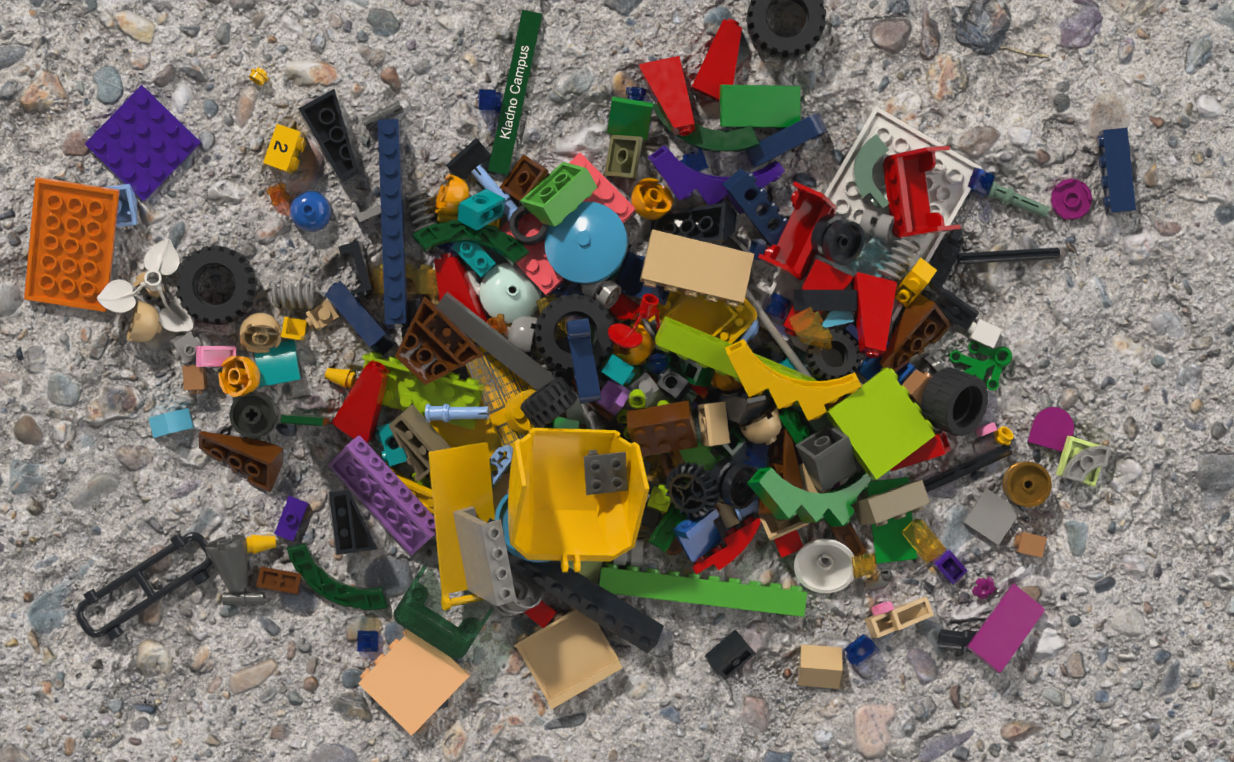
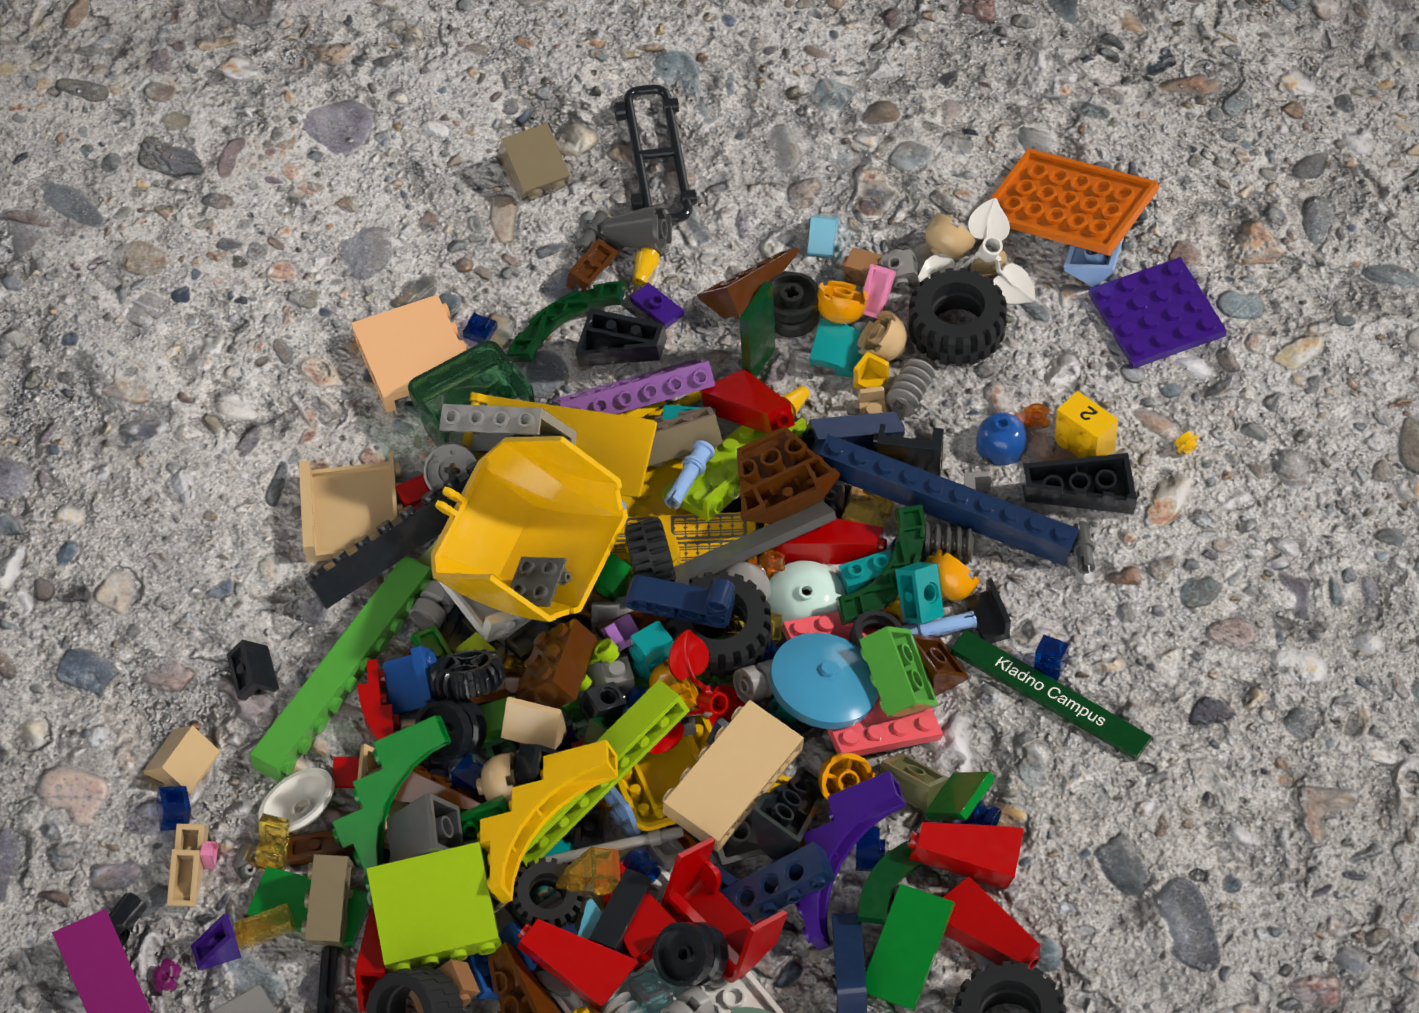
camera: 120 degrees right, 35 degrees down
(197, 674) = (533, 161): none -> dark tan slope

